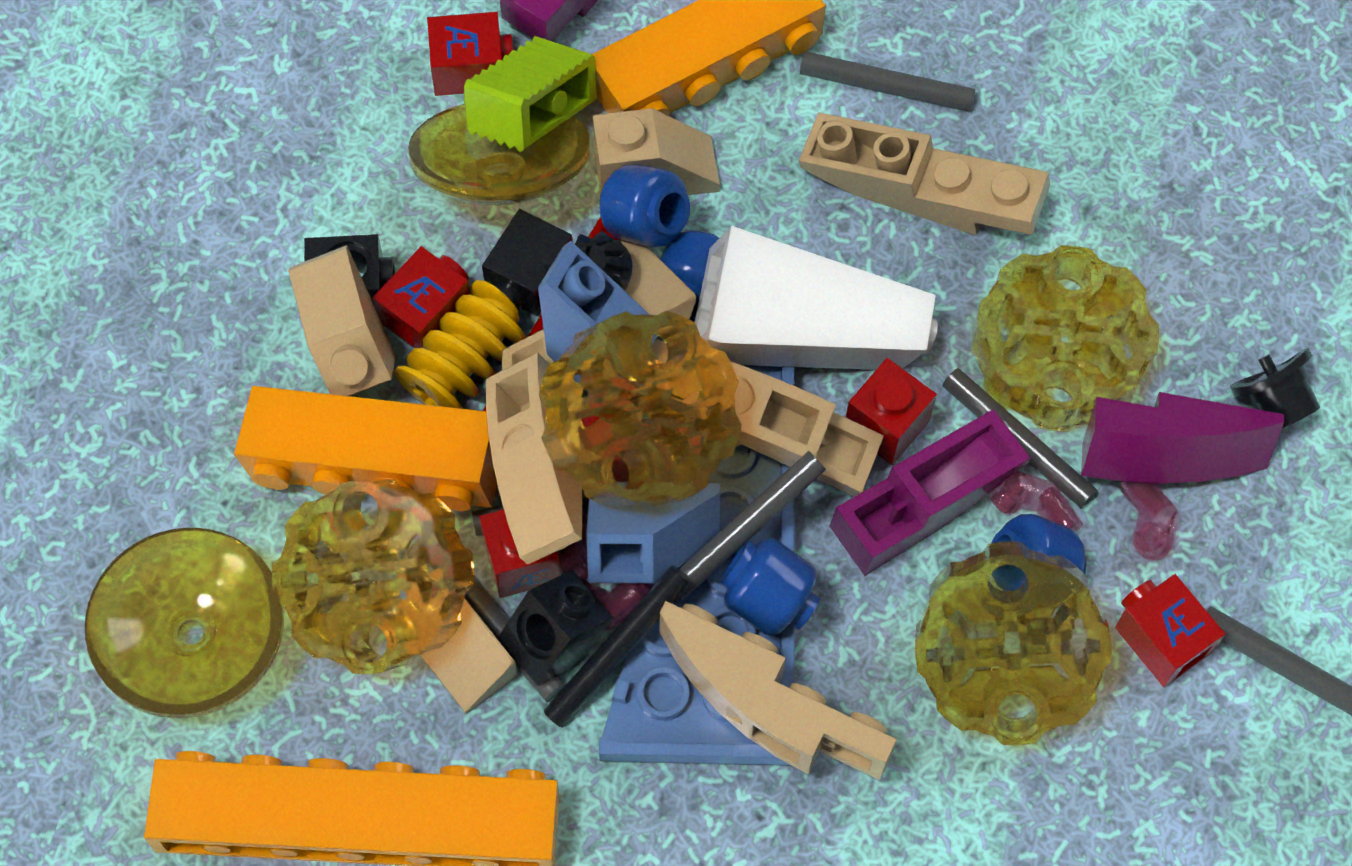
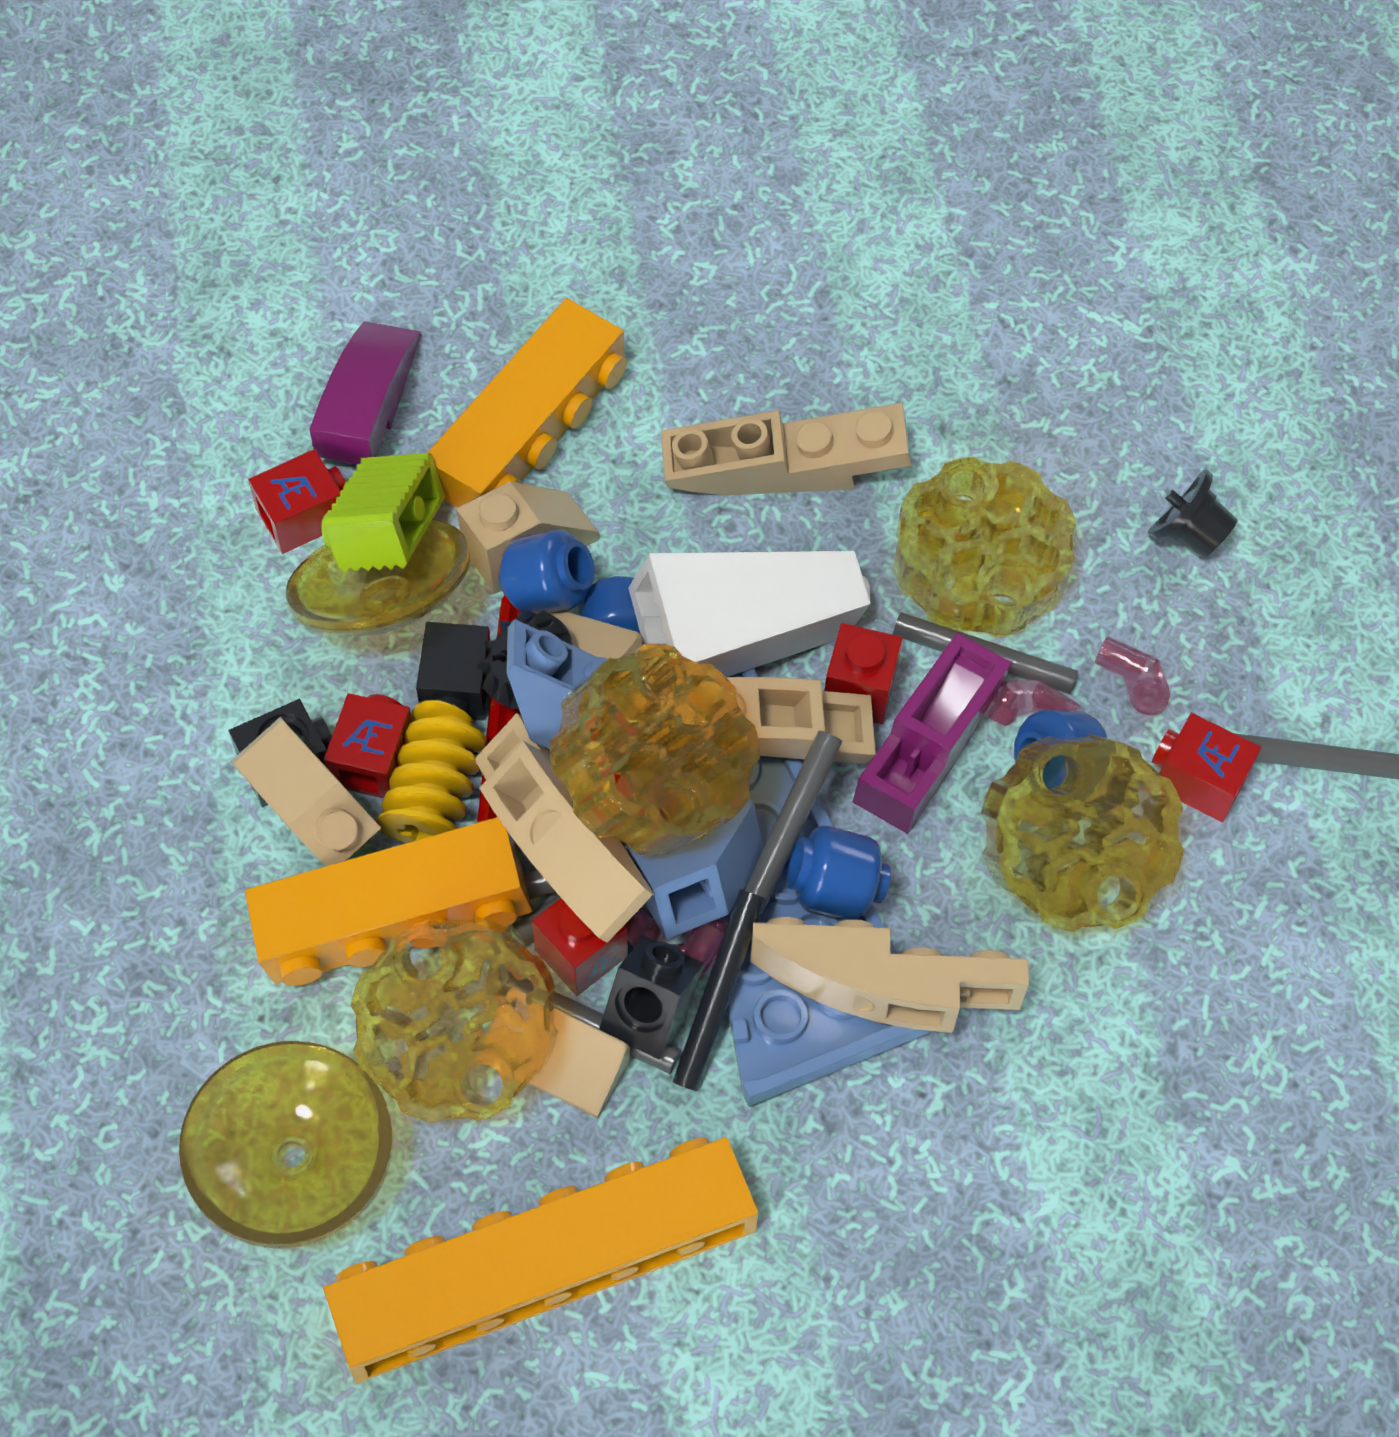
camera: 25 degrees left, 5 degrees down
(887, 81) = (706, 381): dark grey bar -> none
(1177, 440) = (1128, 597): magenta slope -> none

